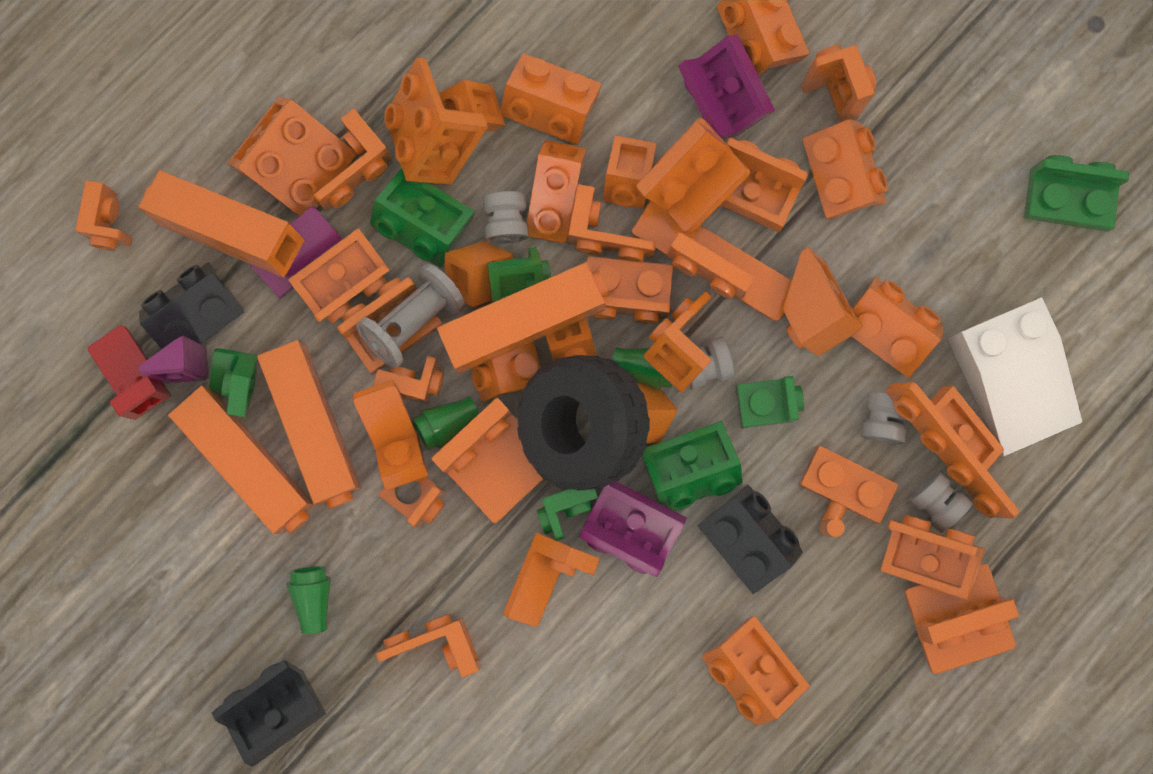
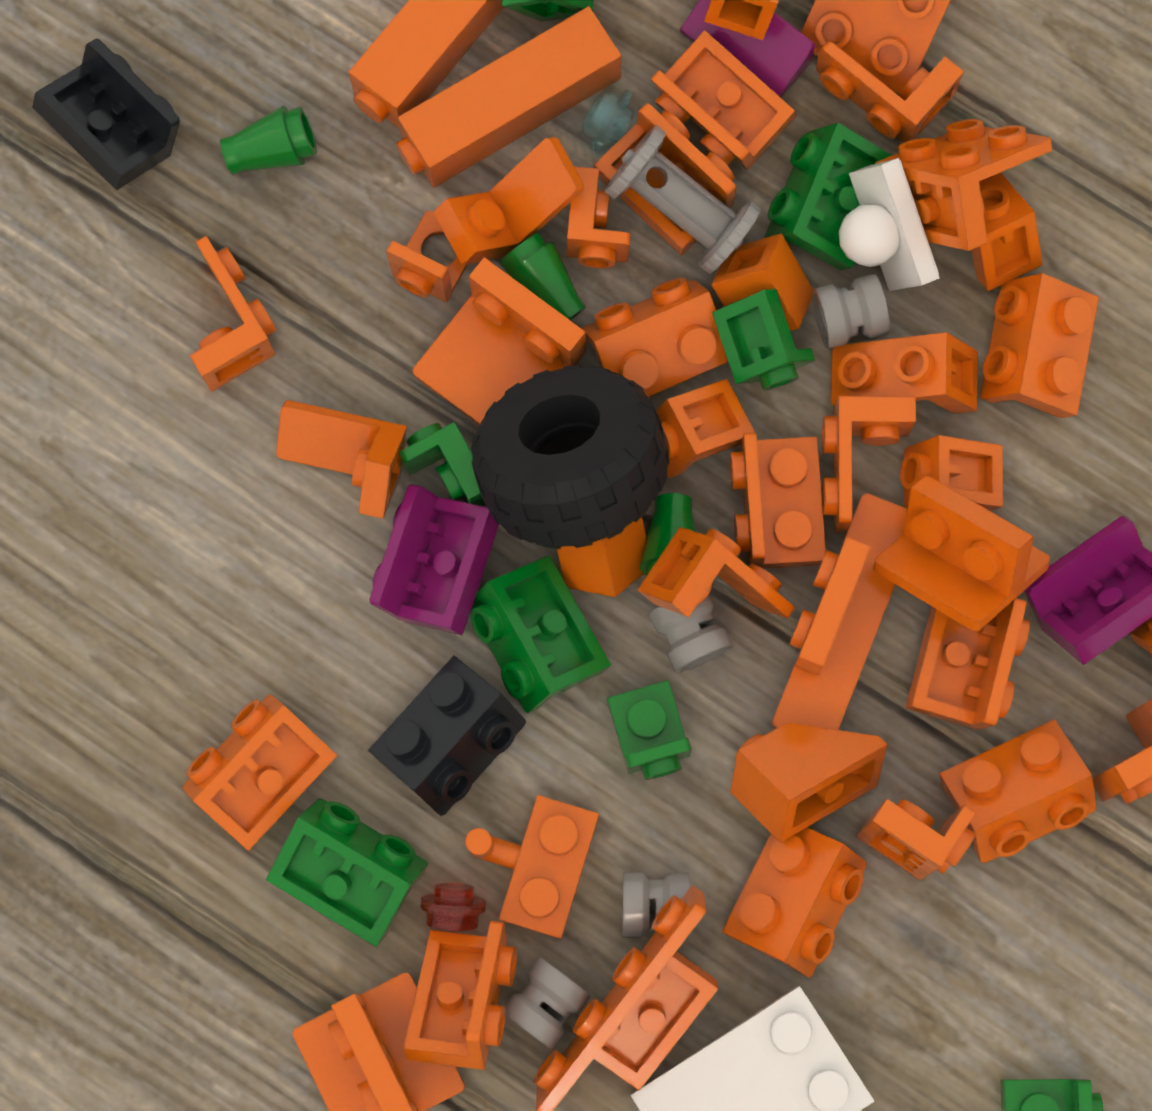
camera: 85 degrees right, 5 degrees down
(337, 358) = (607, 118): none -> clear light blue plate
(454, 180) = (887, 227): none -> white tile
(523, 317) = (704, 347): orange brick -> none
(832, 619) = (346, 869): none -> green bracket
(868, 553) = (453, 907): none -> clear red plate
(880, 225) = (907, 839): none -> orange bracket

